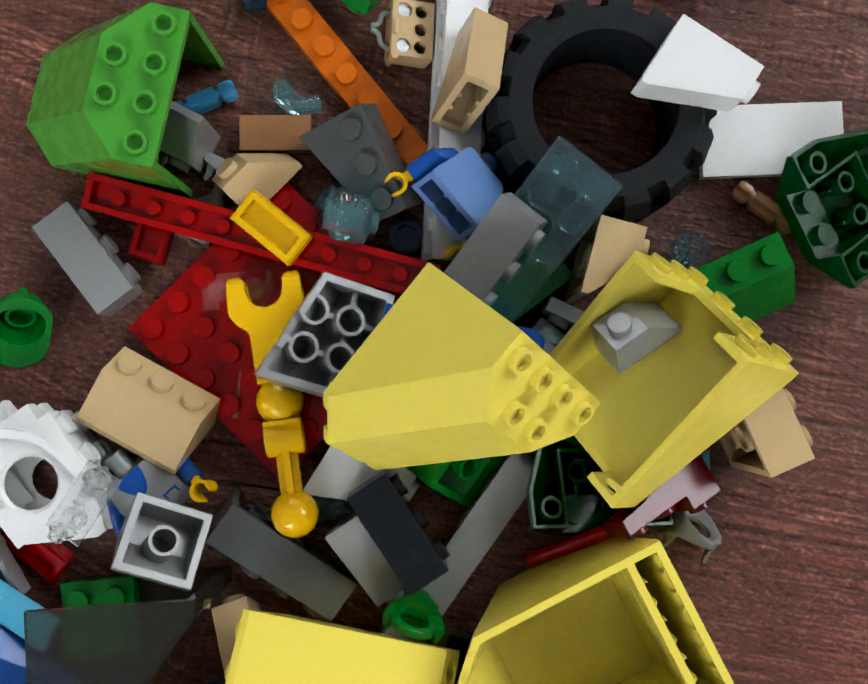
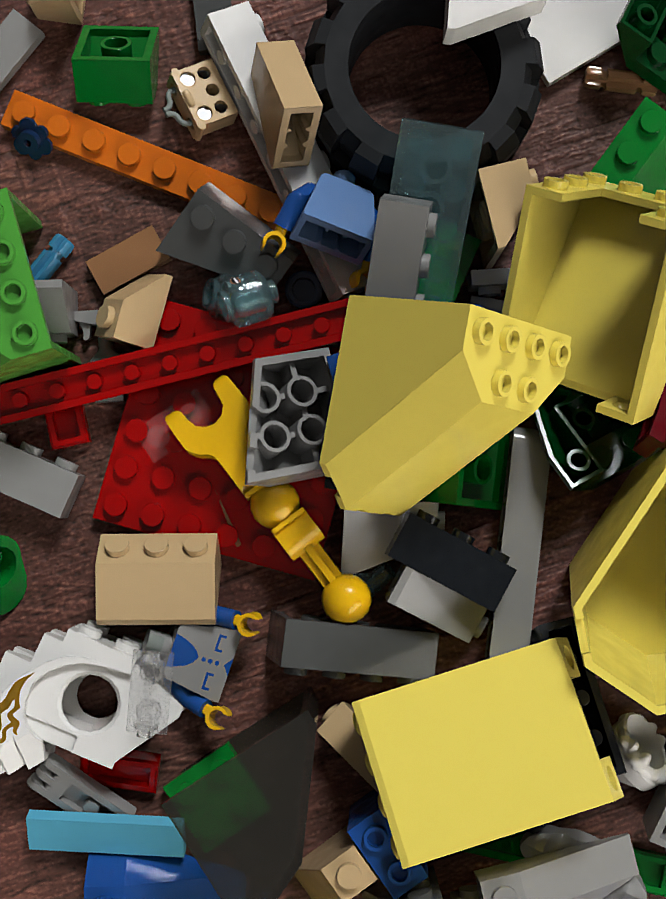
camera: 25 degrees left, 0 degrees up
(161, 541) = (240, 685): light grey slope -> none
(271, 227) = (179, 347): yellow tile -> none
(292, 102) = (127, 222): clear light blue arm -> none
(415, 617) = (508, 629): green piece -> none
(566, 546) = (612, 491): red bar -> none
(633, 333) = (565, 261): light grey slope -> none
(691, 249) = (575, 156): clear light blue tile -> none

